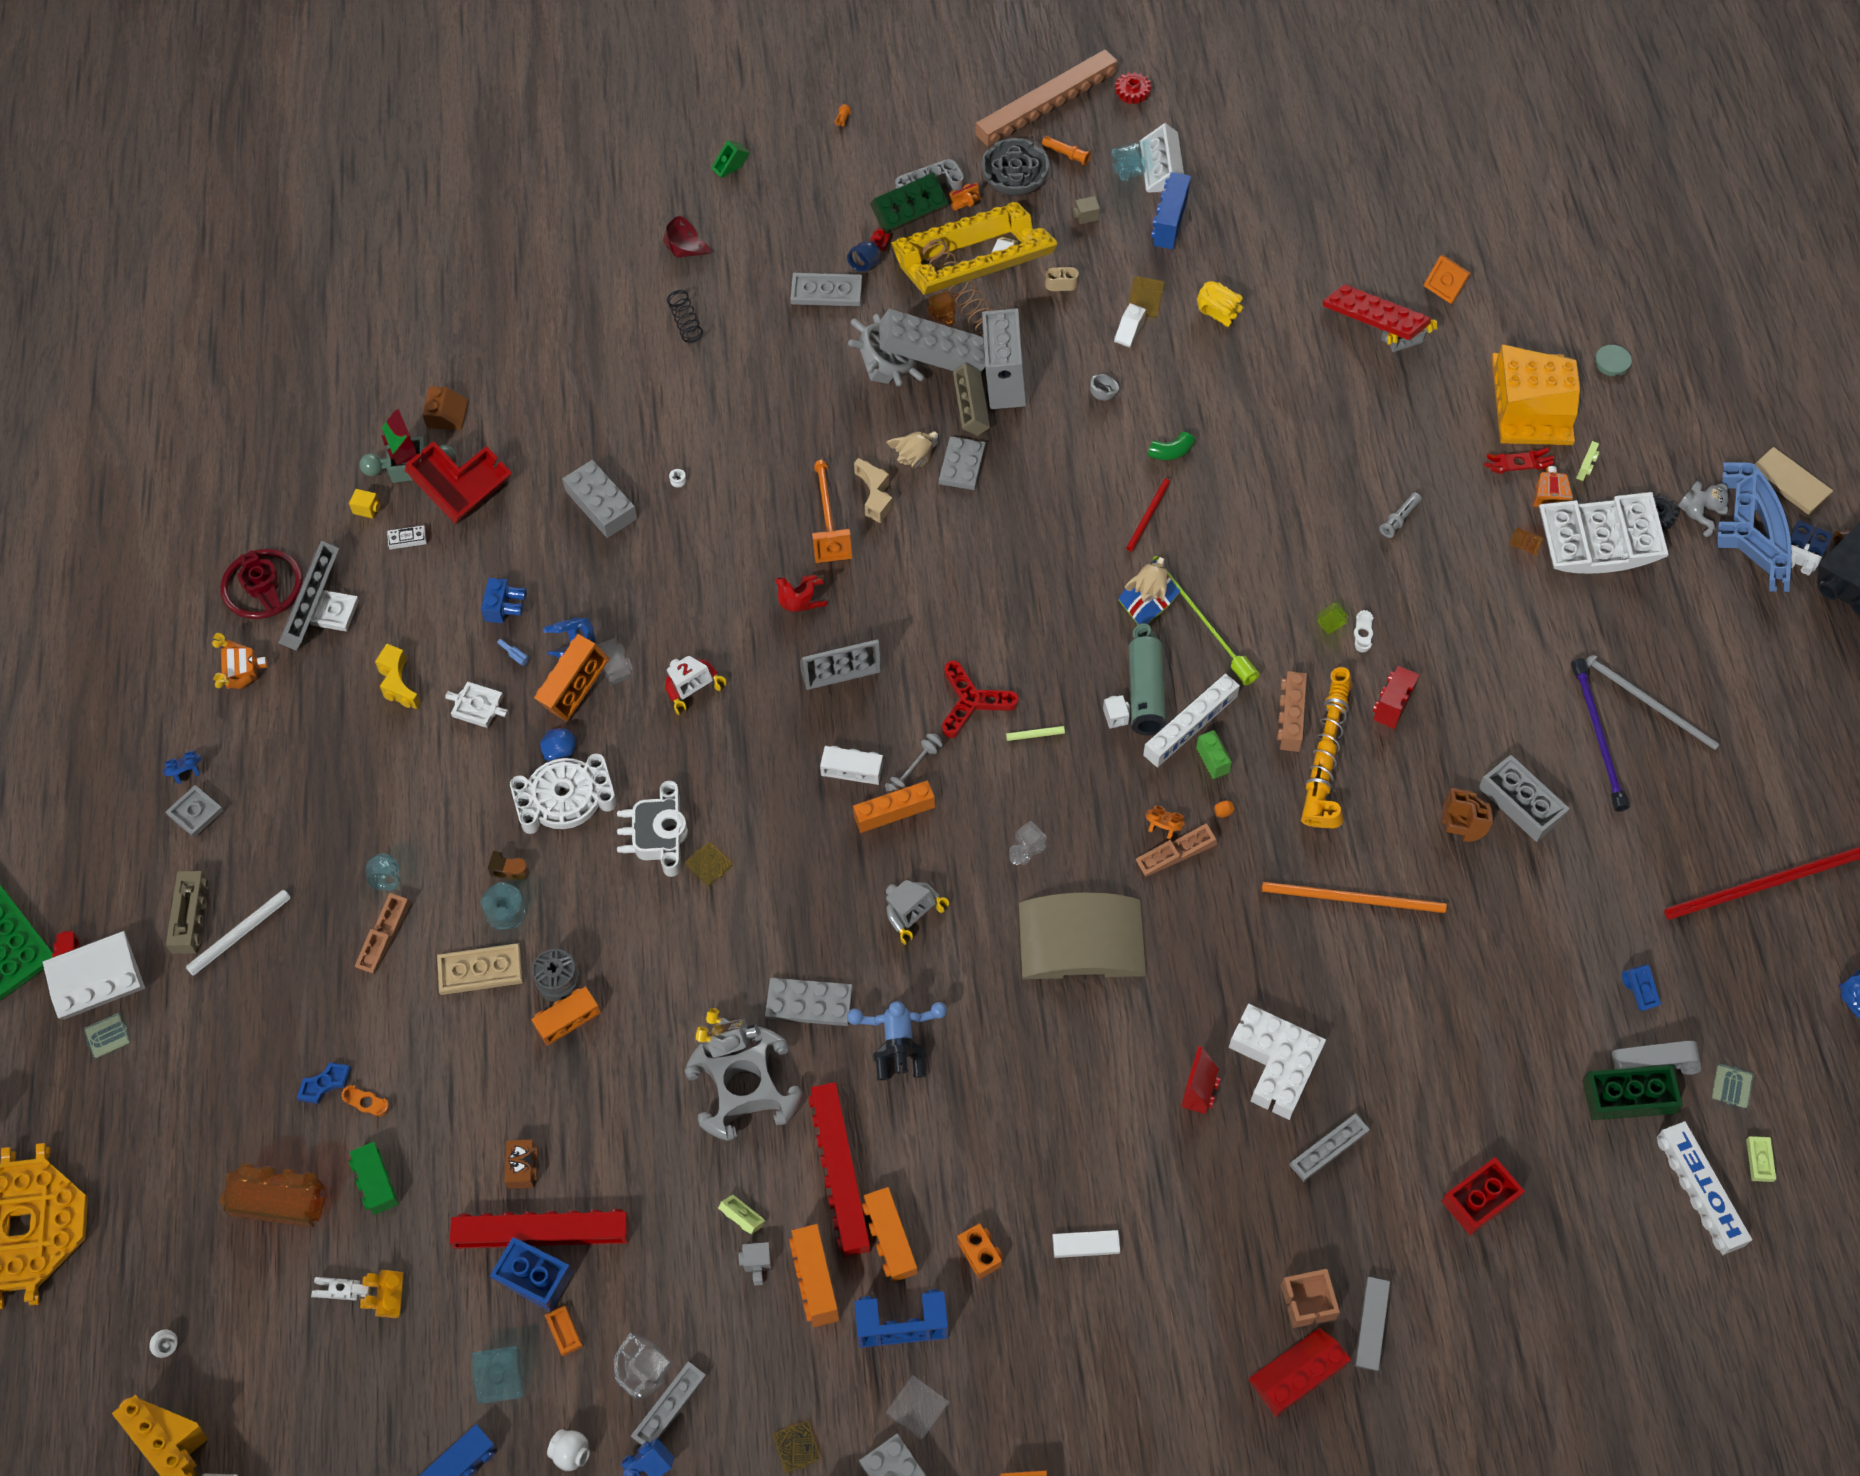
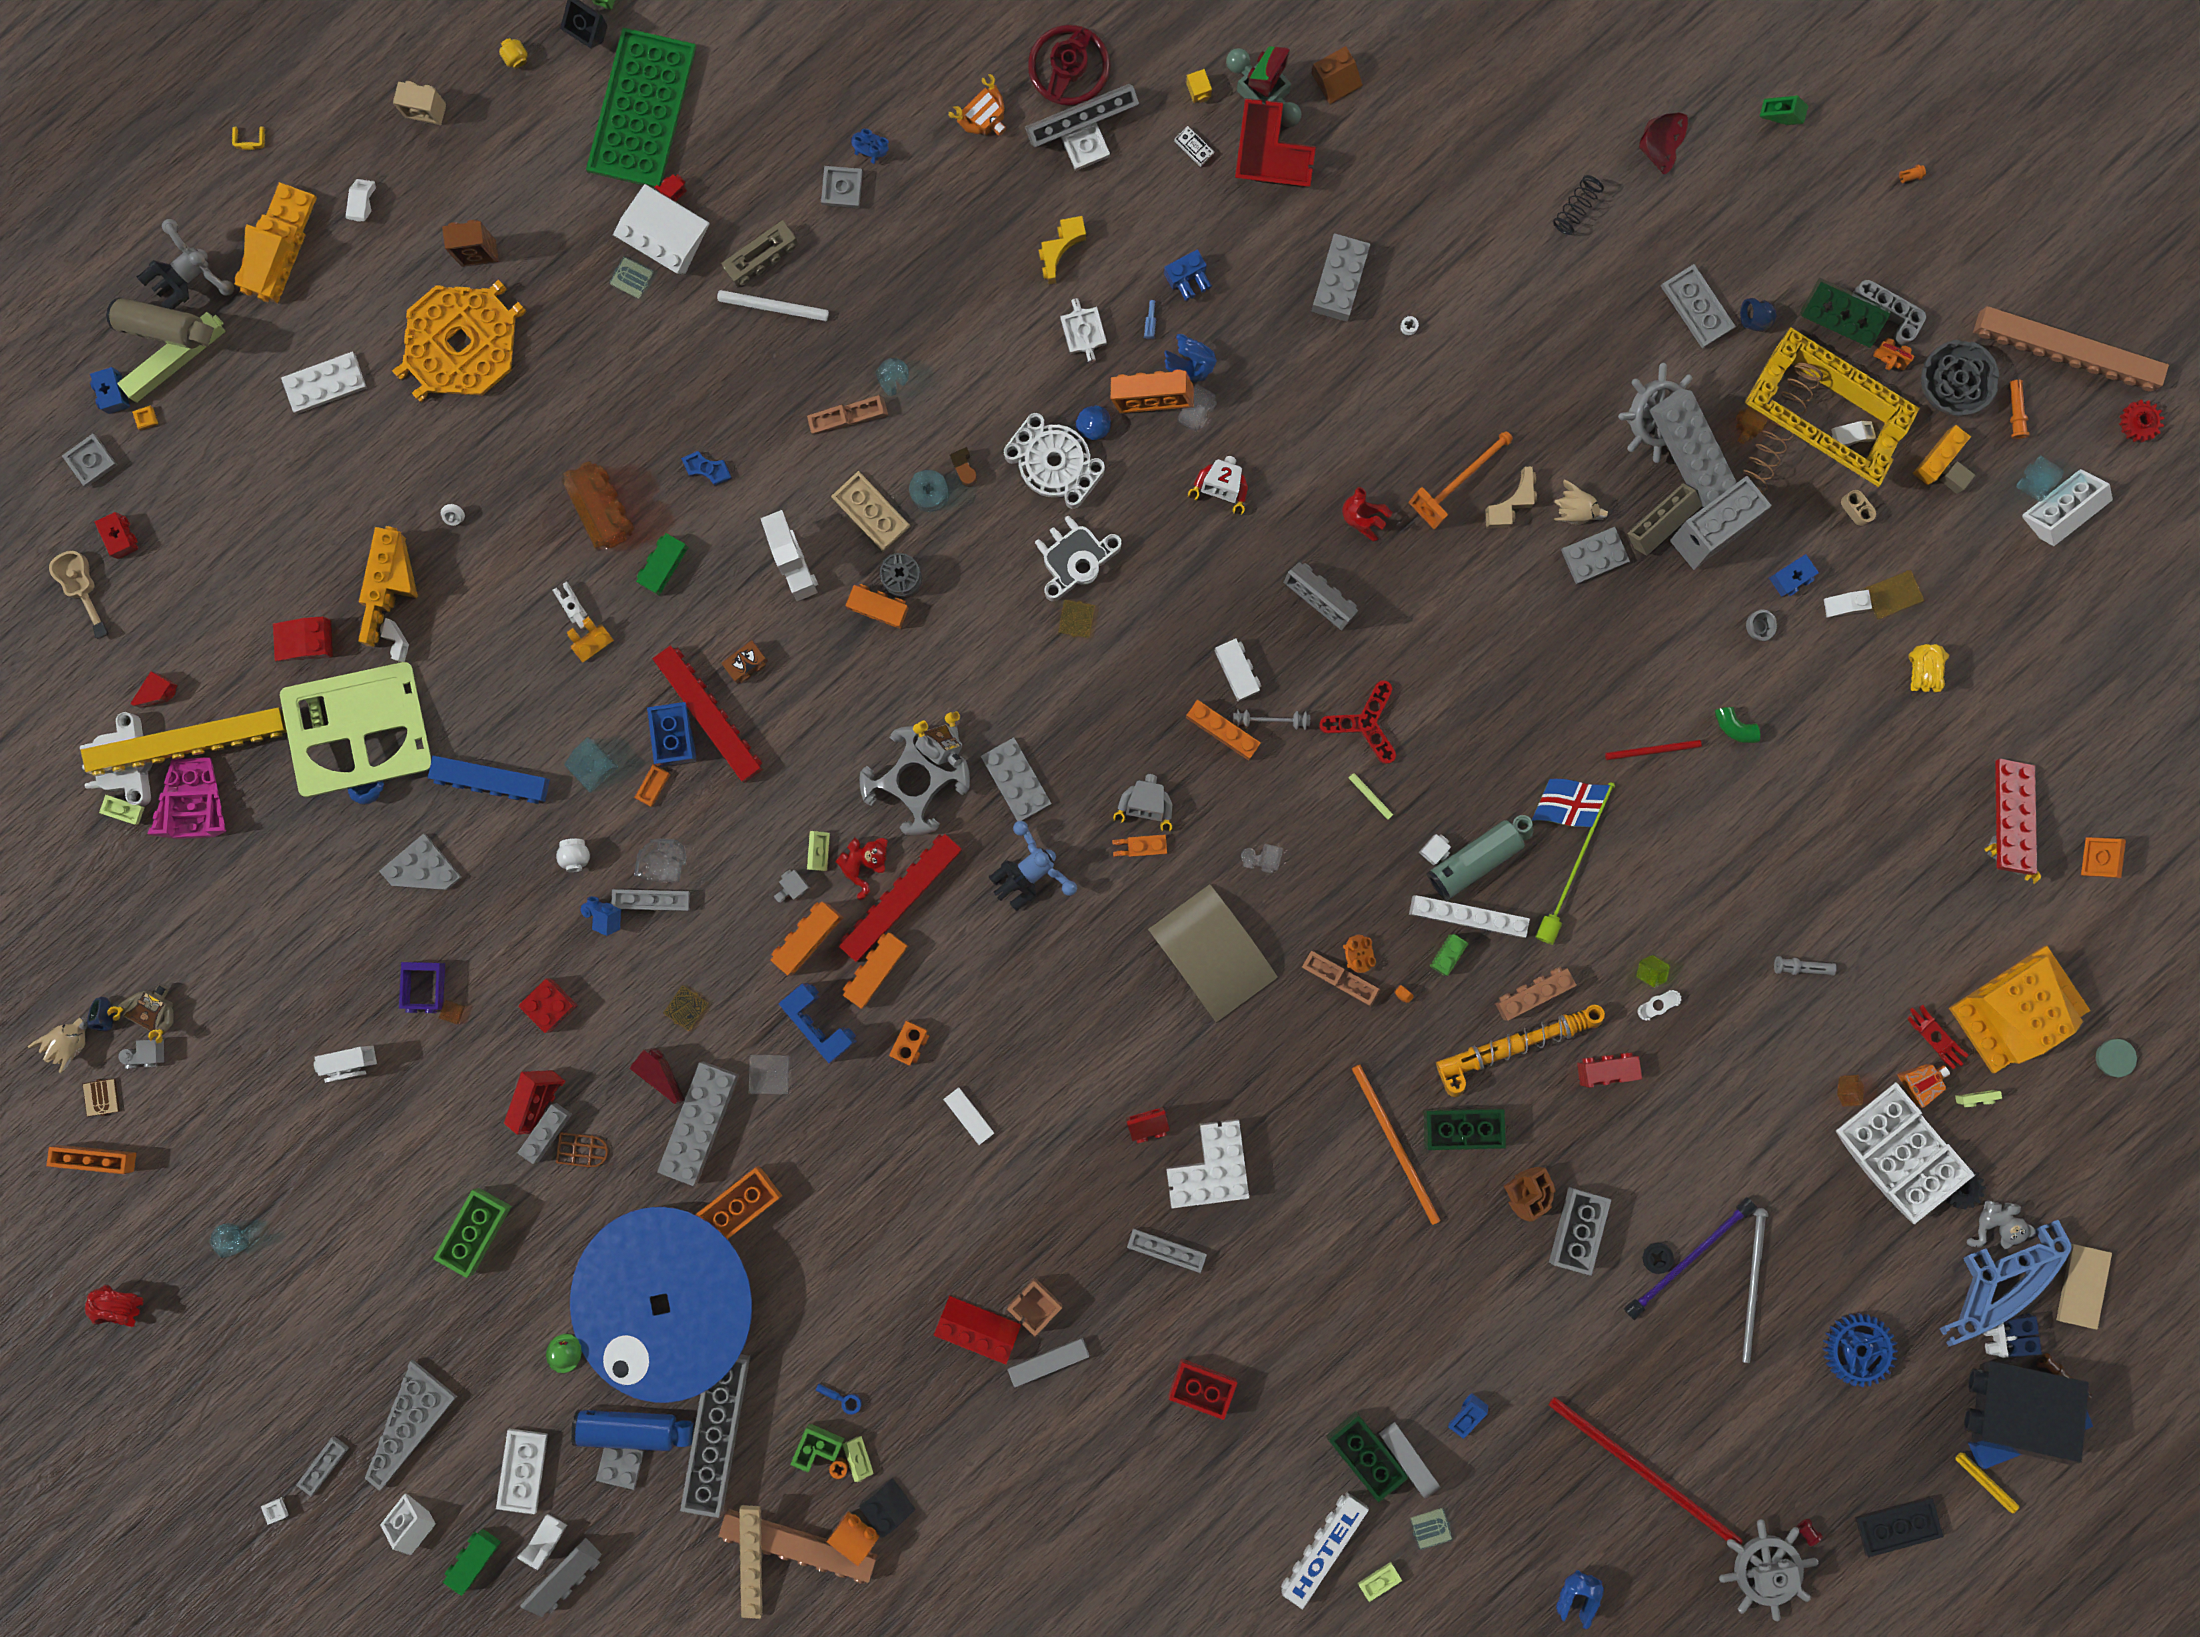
camera: 55 degrees right, 25 degrees up
(353, 1097) = (711, 499): orange piece -> none
(455, 1052) = (789, 556): none -> white wedge
(781, 1168) = (871, 855): none -> red animal
(880, 238) = (1788, 313): red tile -> none
(945, 935) = (1142, 846): none -> orange hinge
(1063, 209) = (1941, 455): none -> light orange brick
(1081, 346) = (1804, 571): none -> blue brick
(1150, 581) = (1579, 799): tan piece -> none
(1171, 210) = (2007, 555): blue brick -> none
(1375, 832) = (1473, 1138): none -> dark green brick
(1586, 751) = (1666, 1255): none -> black gear
(1751, 671) = (1849, 1340): none -> blue gear

